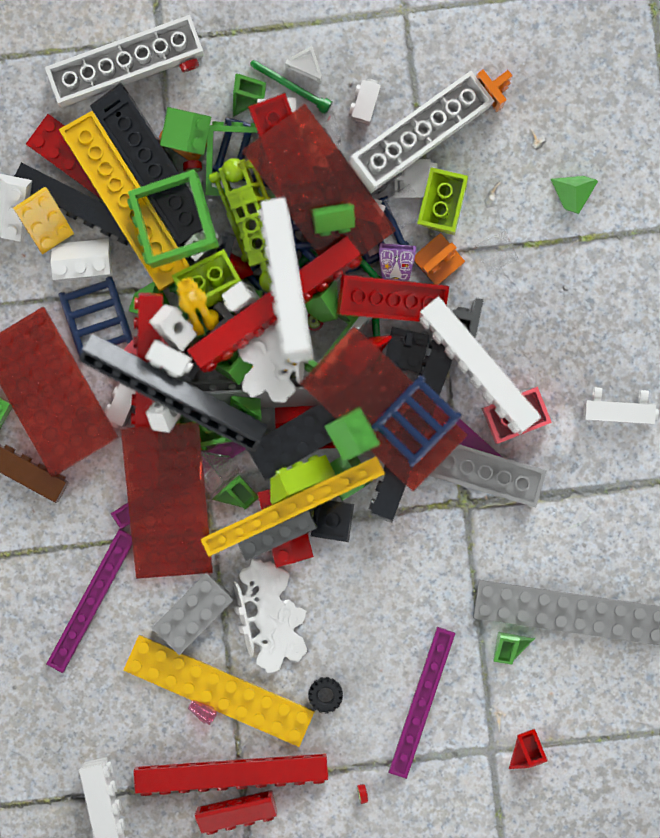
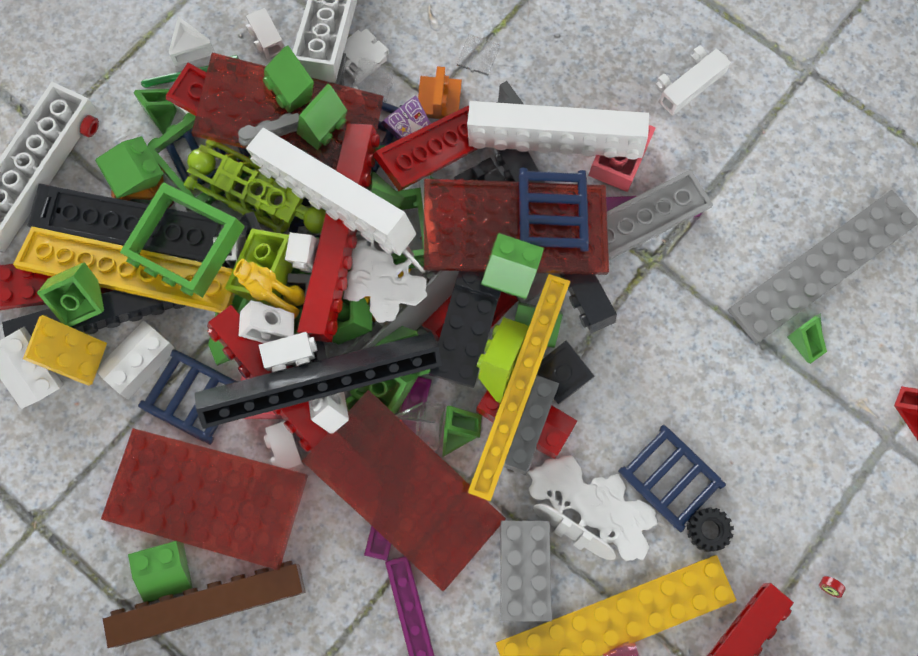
camera: 50 degrees left, 15 degrees down
(77, 190) = (73, 295): none -> bright green slope
(291, 194) = (284, 125): none -> light grey hinge
(333, 173) = (288, 80): none -> bright green slope
(359, 635) = (661, 505): none -> dark blue bar
(421, 702) = (794, 458): magenta tile -> none
(443, 201) = (400, 47): lime slope -> none

